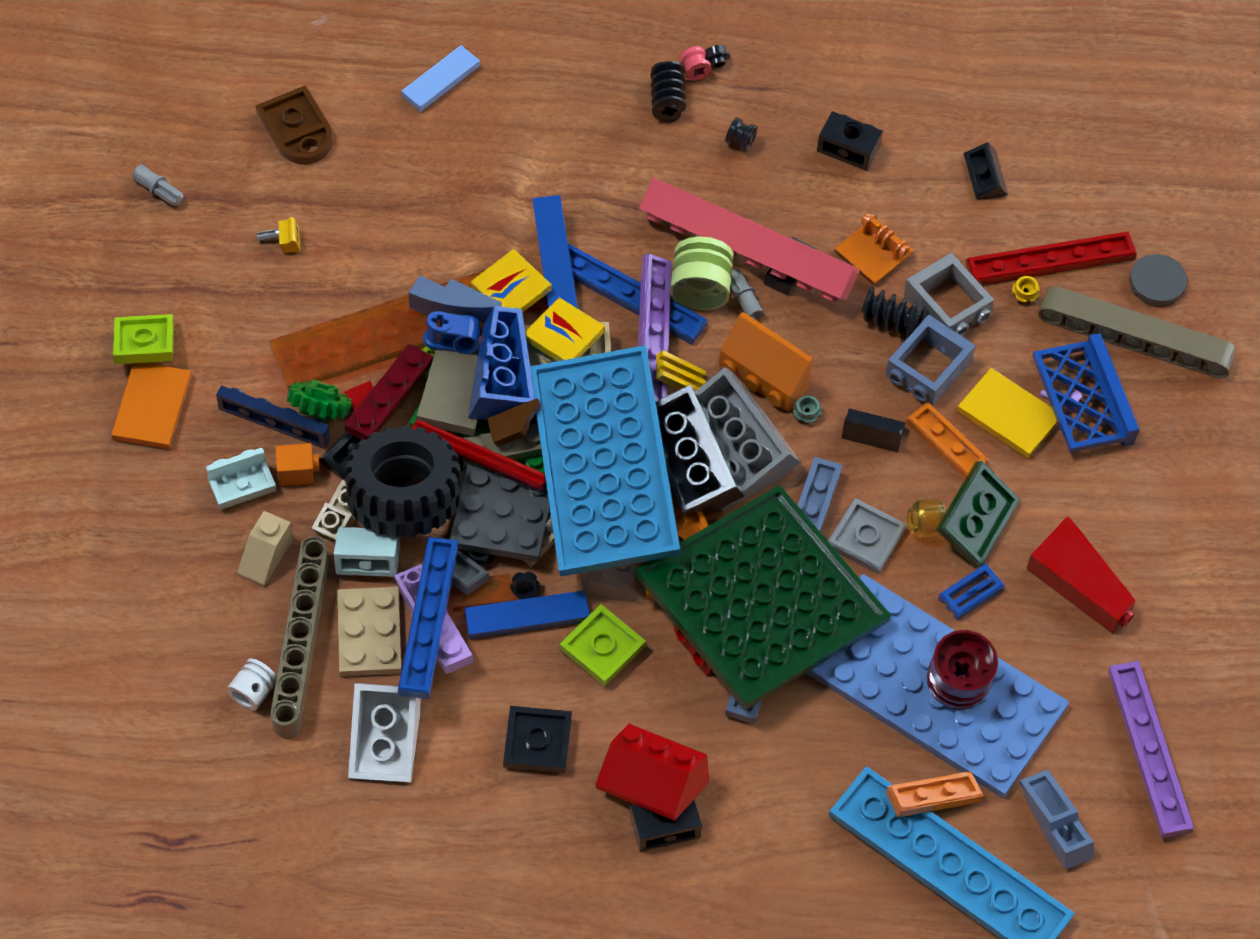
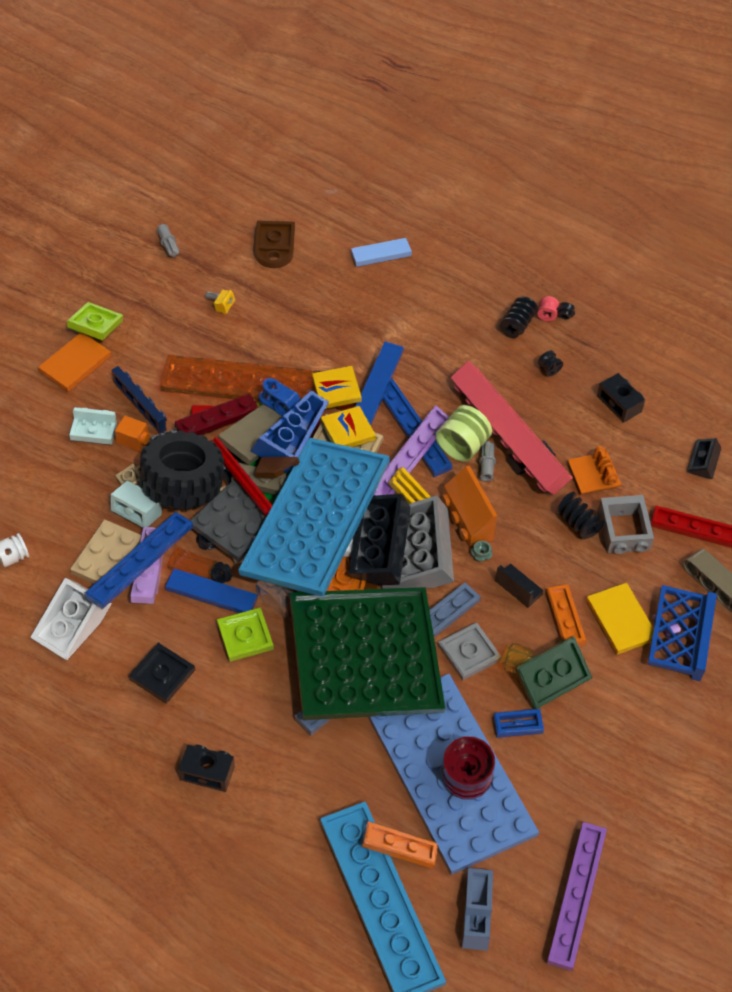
camera: 30 degrees right, 5 degrees down
(265, 548) = (78, 473): tan slope -> none
(303, 648) = (85, 516): dark tan beam -> none
(319, 400) = (170, 401): green gear -> none
(453, 299) = (291, 377): sand blue slope -> none
(468, 574) = (188, 547): dark grey tile -> none
(653, 772) = (215, 730): red slope -> none
(943, 340) = (604, 548): sand blue window -> none
(1026, 283) = (685, 539): yellow plate -> none
(1081, 576) = (601, 747): red slope -> none

